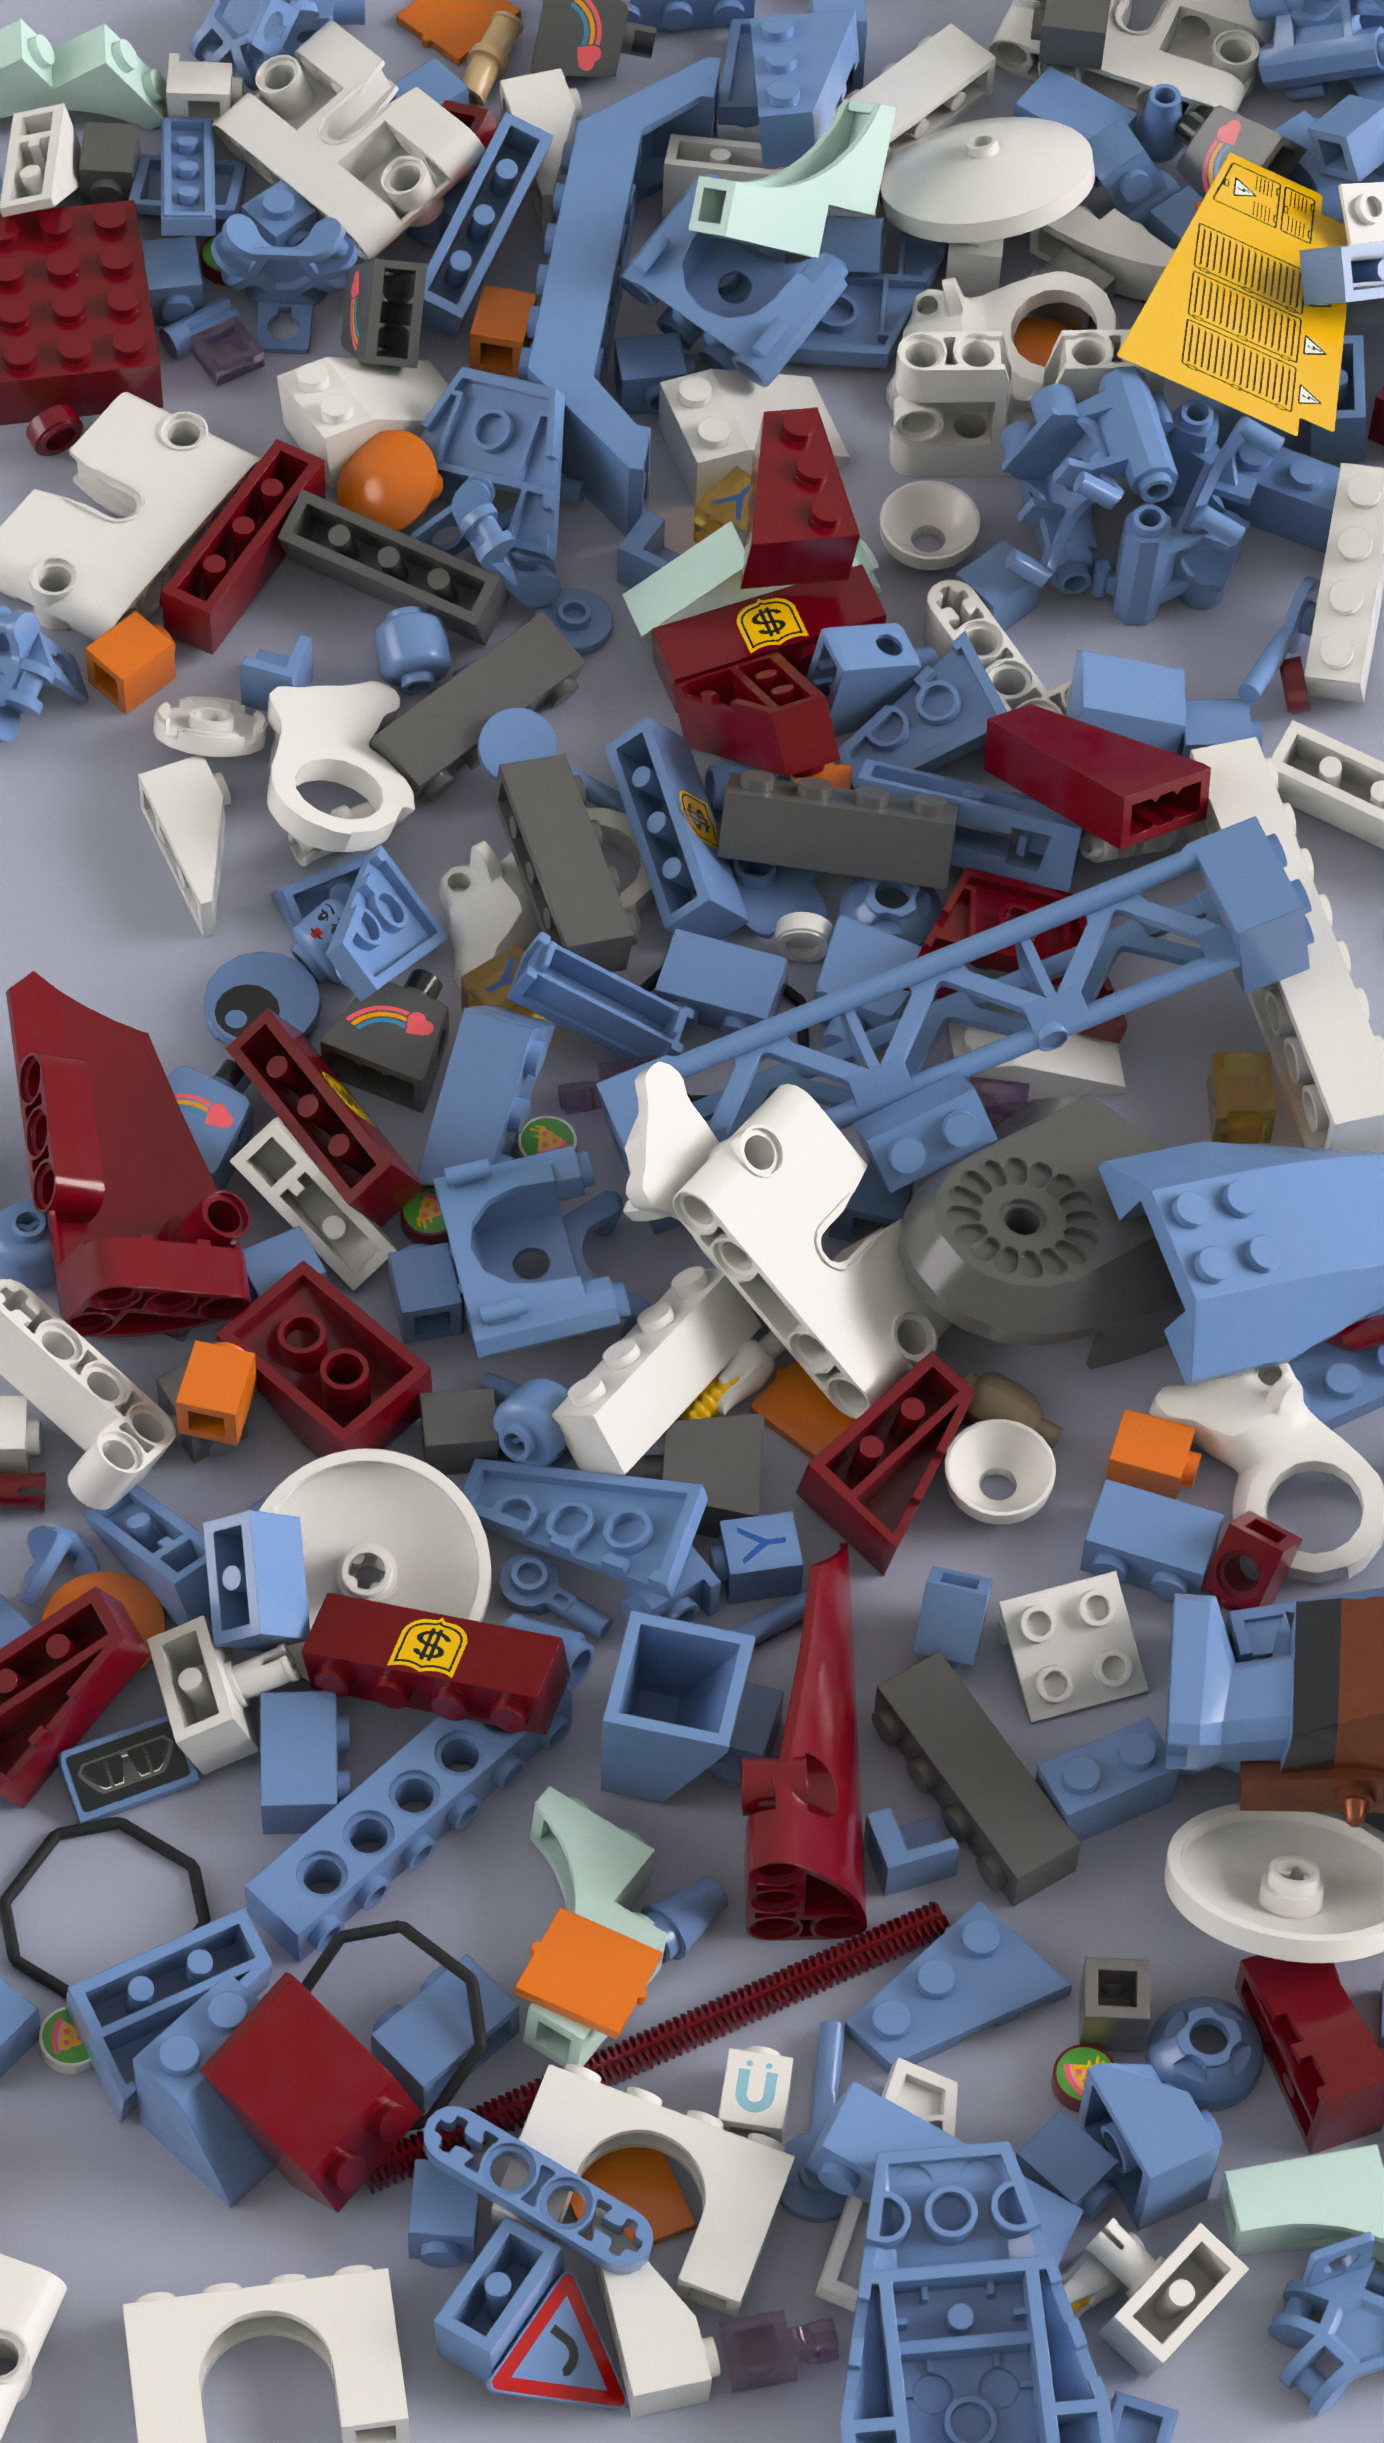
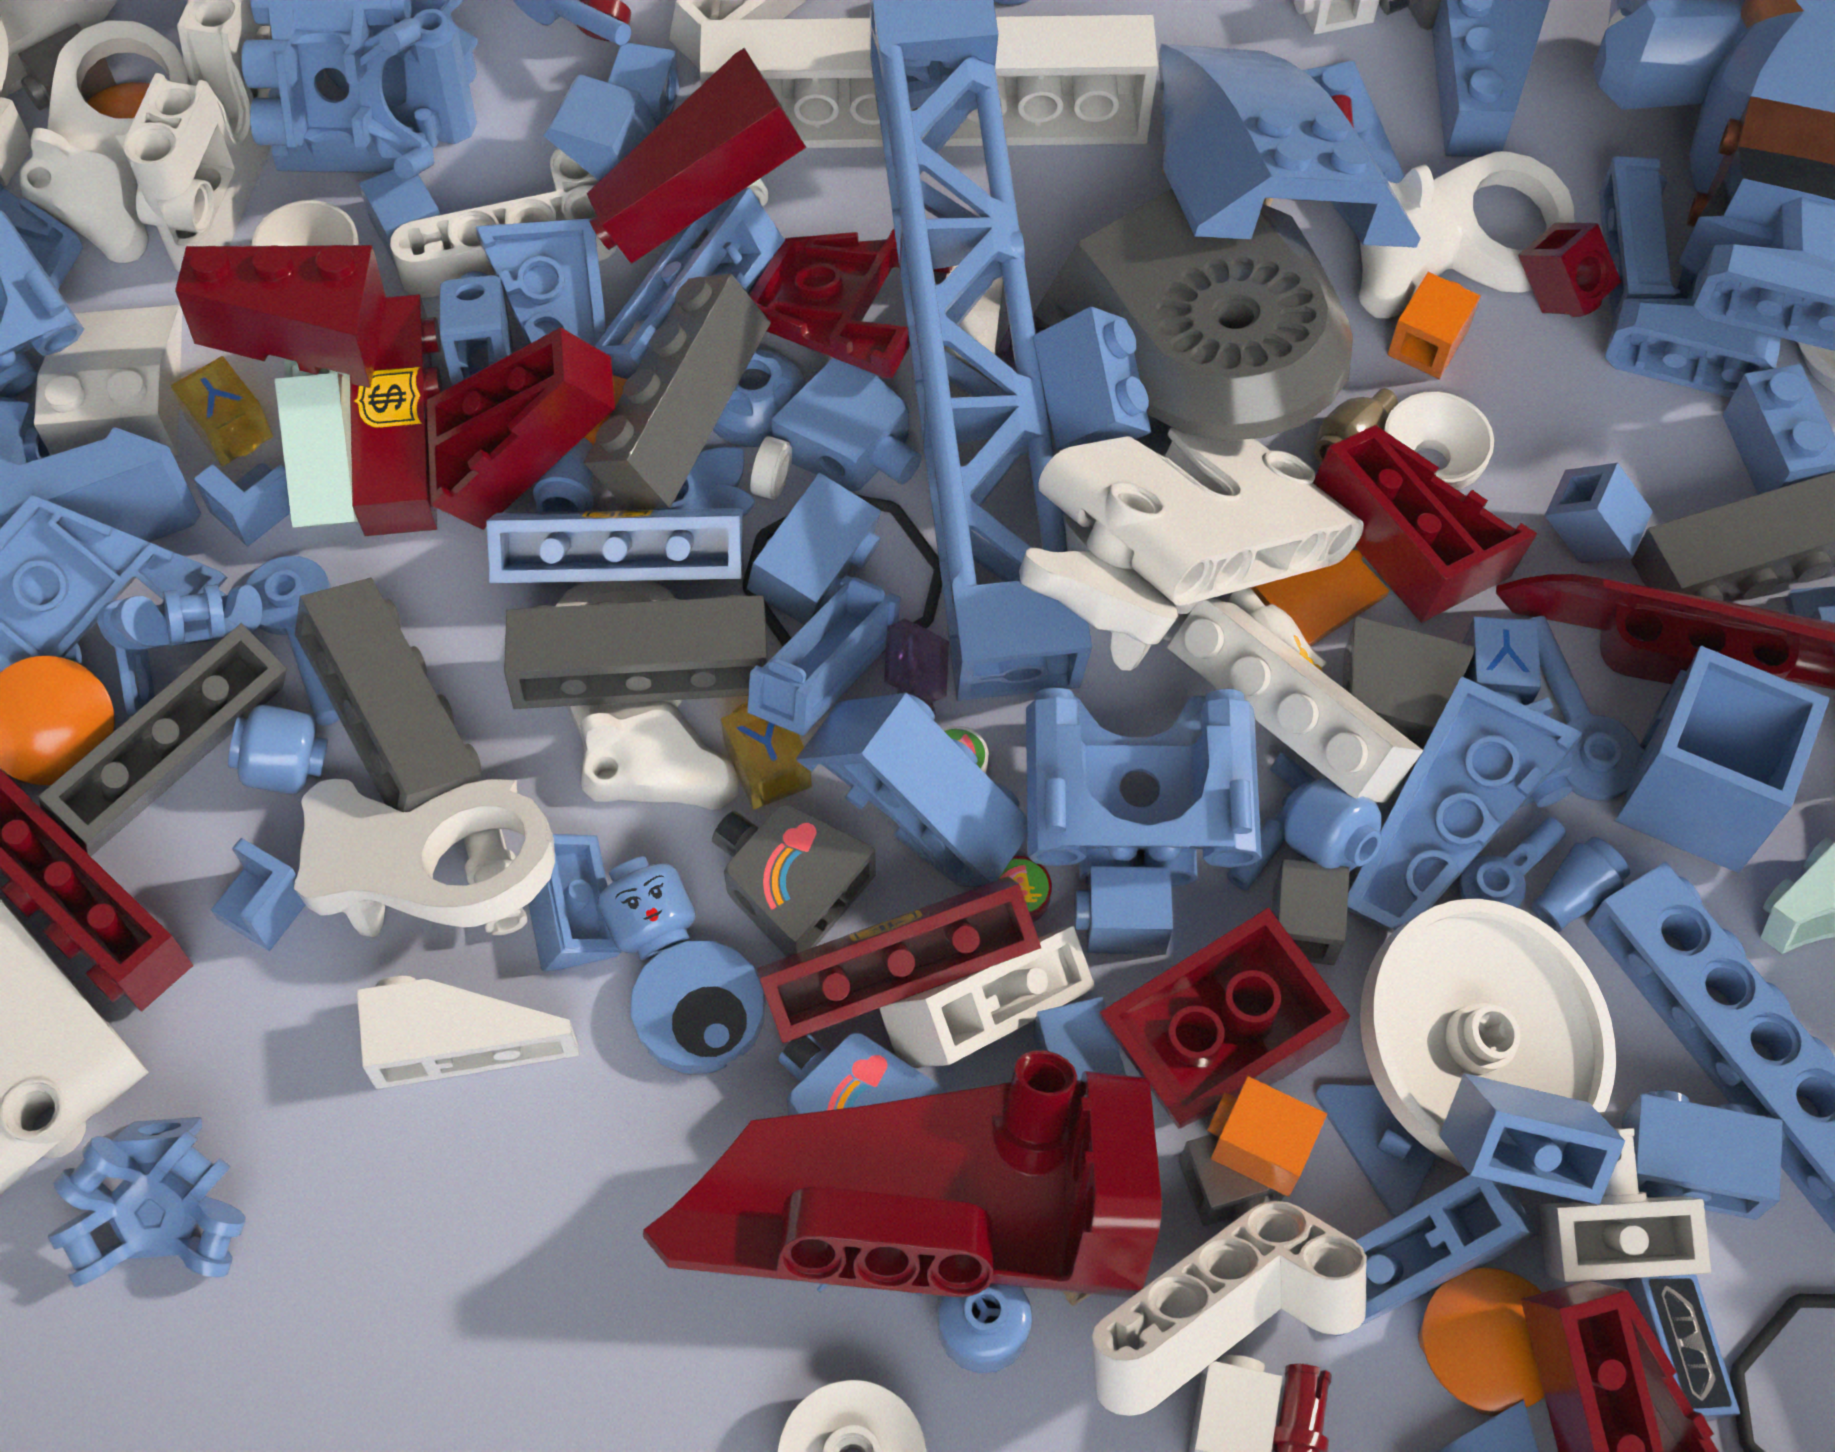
camera: 75 degrees left, 5 degrees up
(48, 1548) = (1387, 1379): medium blue piece -> none
(131, 662) = (178, 1051): orange brick -> none
(210, 727) = (313, 981): white tile -> none
(381, 928) = (673, 843): medium blue wing -> none
(436, 1663) = (1640, 978): dark red brick -> none
(526, 735) = (466, 665): medium blue piece -> none
(1072, 1646) = (1625, 426): white hinge -> none
(1151, 1540) = (1525, 344): medium blue brick -> none
(1241, 1097) = (1055, 165): clear yellow brick -> none

